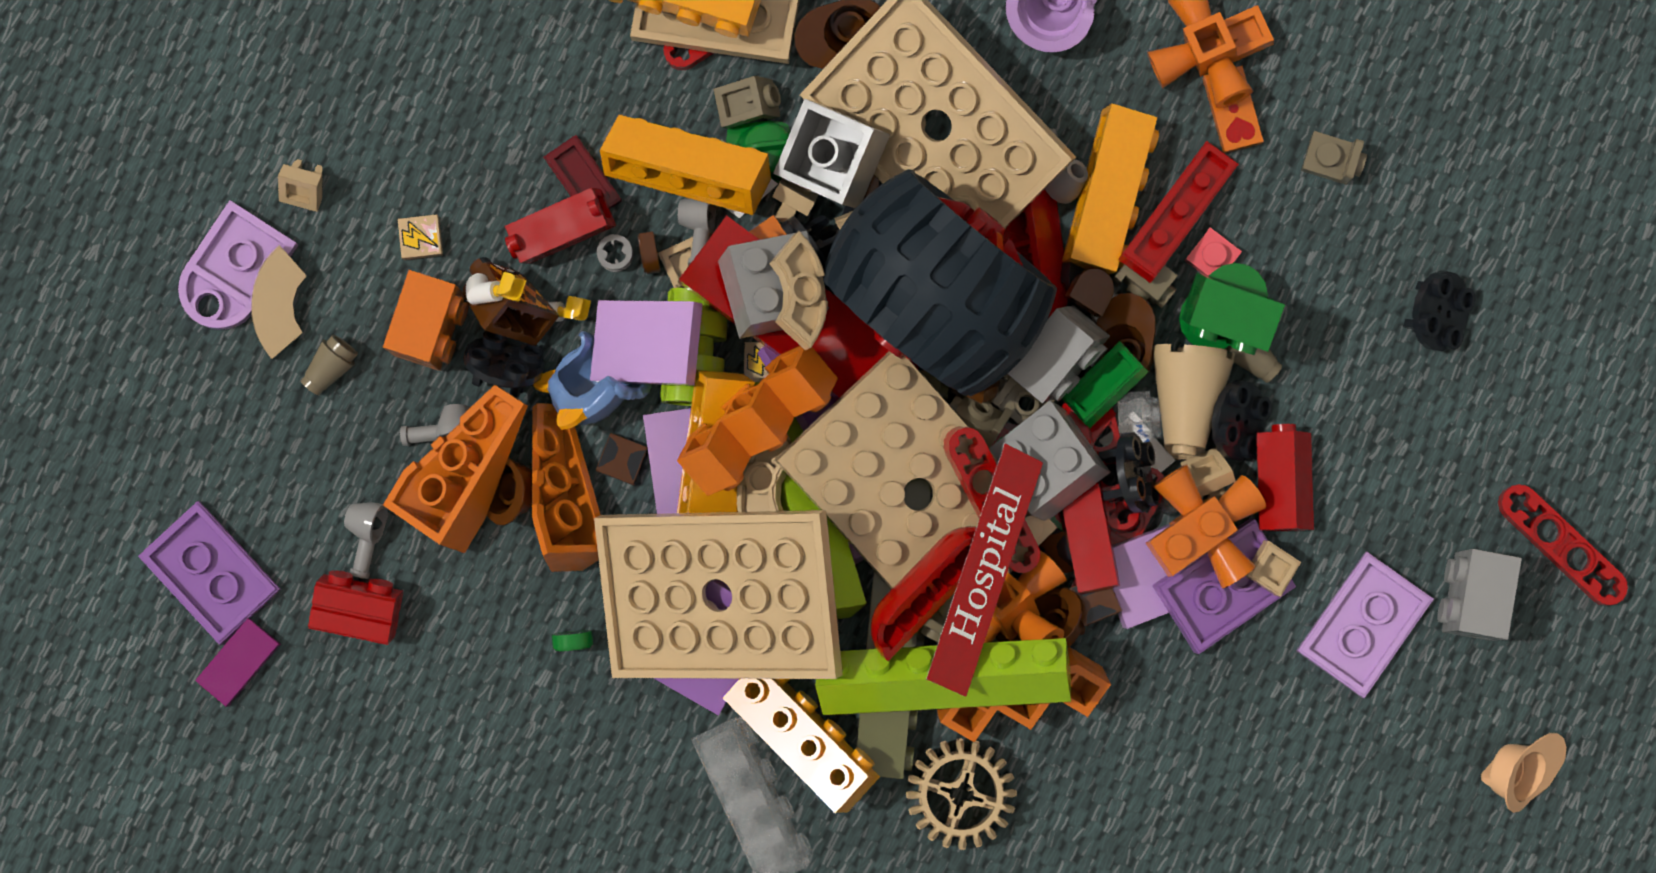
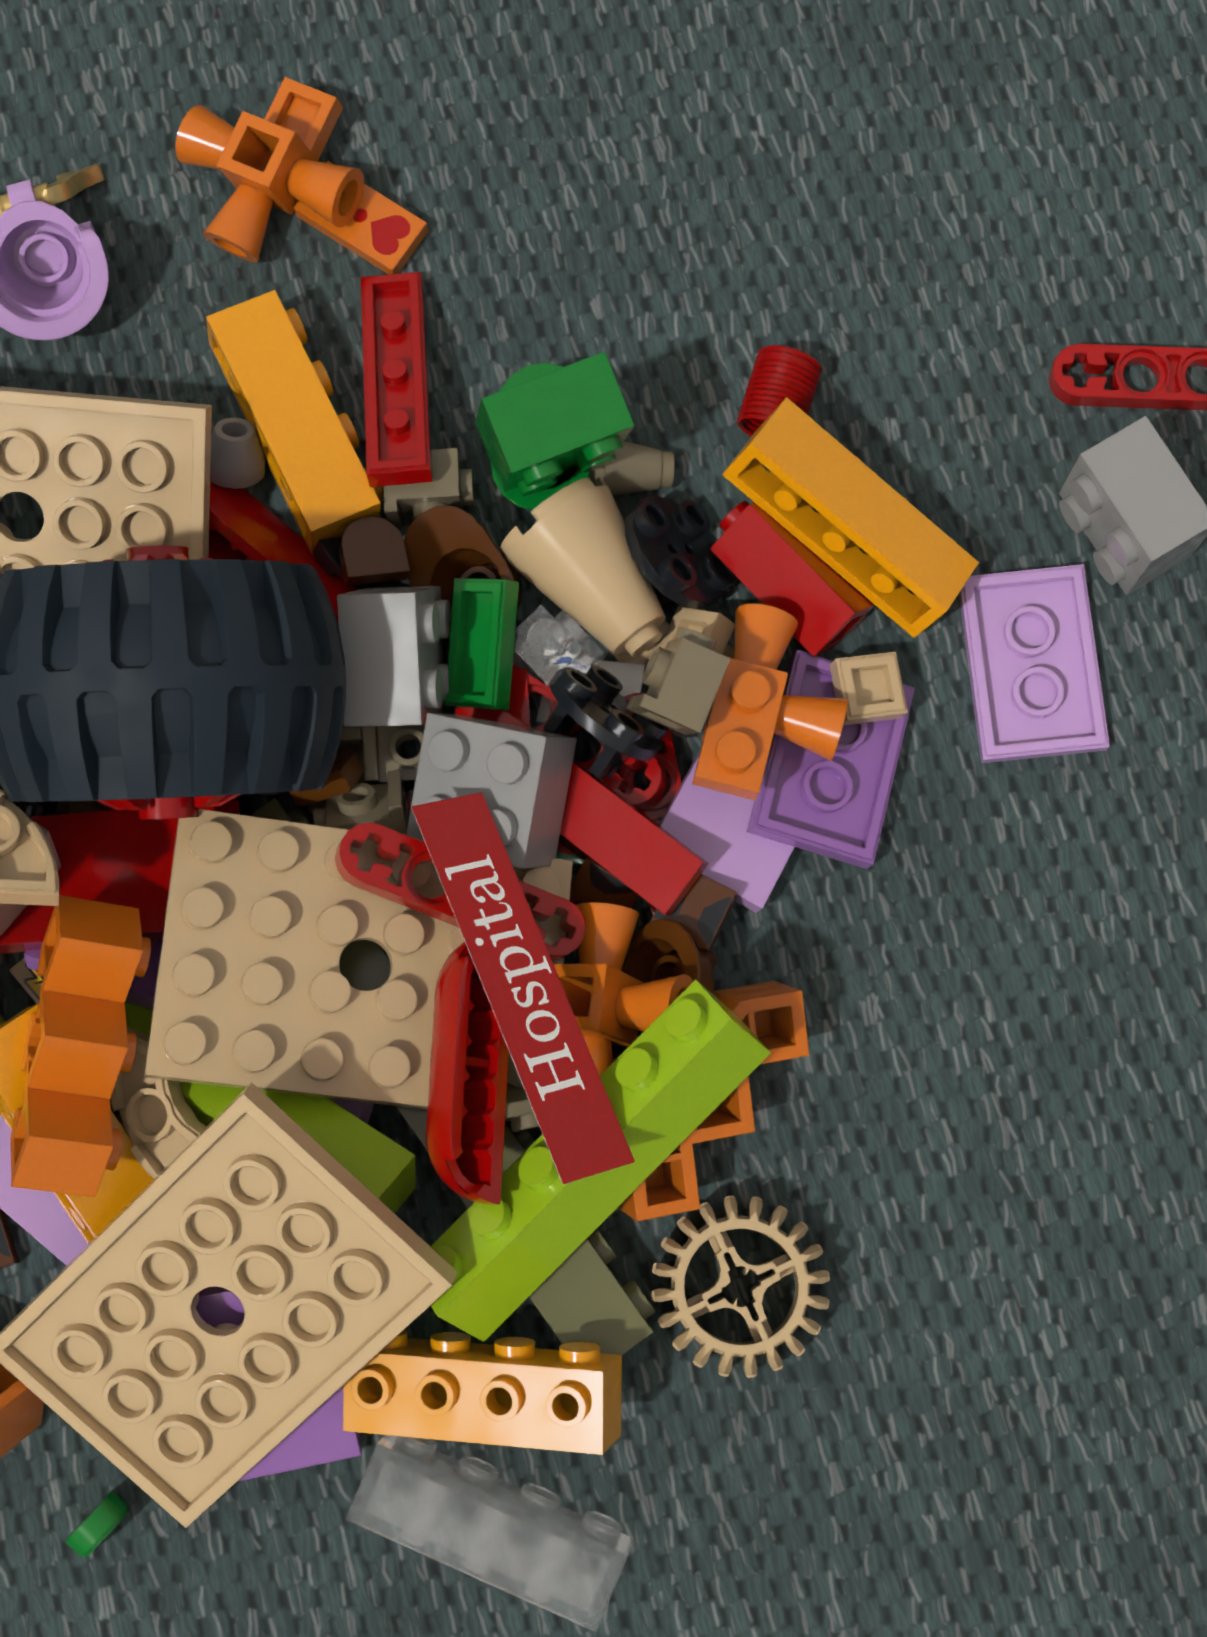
camera: 35 degrees left, 5 degrees down
(1182, 492) = (681, 682): none -> dark tan brick
(1212, 253) = (468, 389): coral plate -> none
(1334, 158) = (524, 174): dark tan bracket -> none
(1337, 479) = (852, 511): none -> light orange brick
(1360, 384) = (777, 375): none -> red piece
(1441, 311) = (796, 235): black plate -> none

